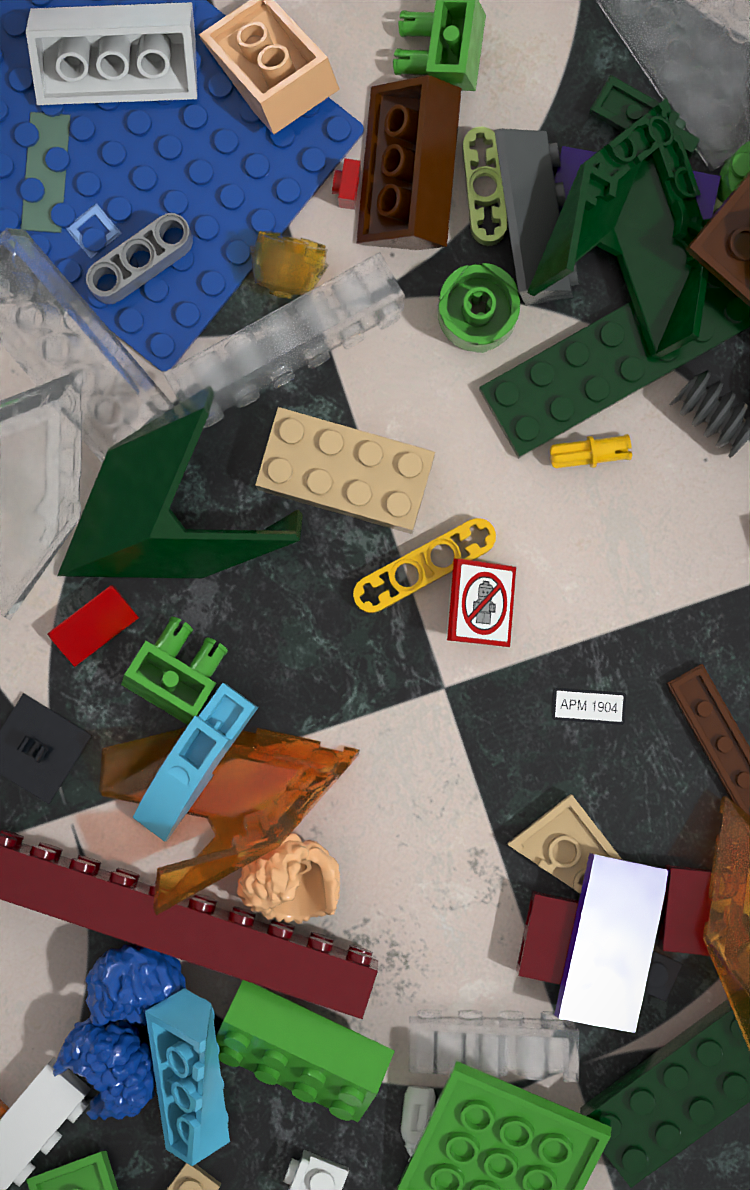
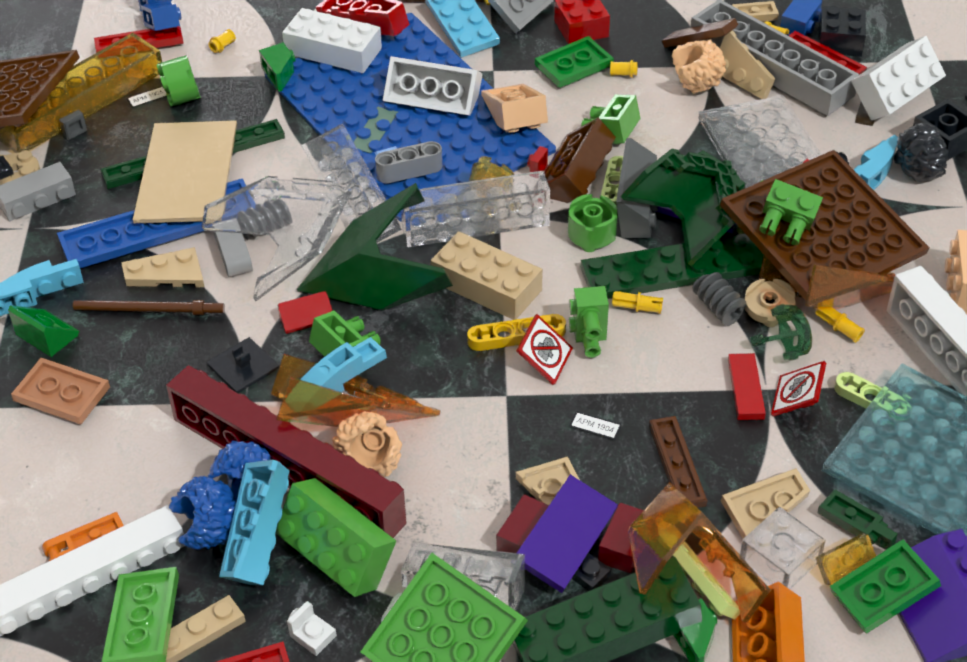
camera: 15 degrees right, 40 degrees down
(531, 528) = (589, 318): none -> bright green brick

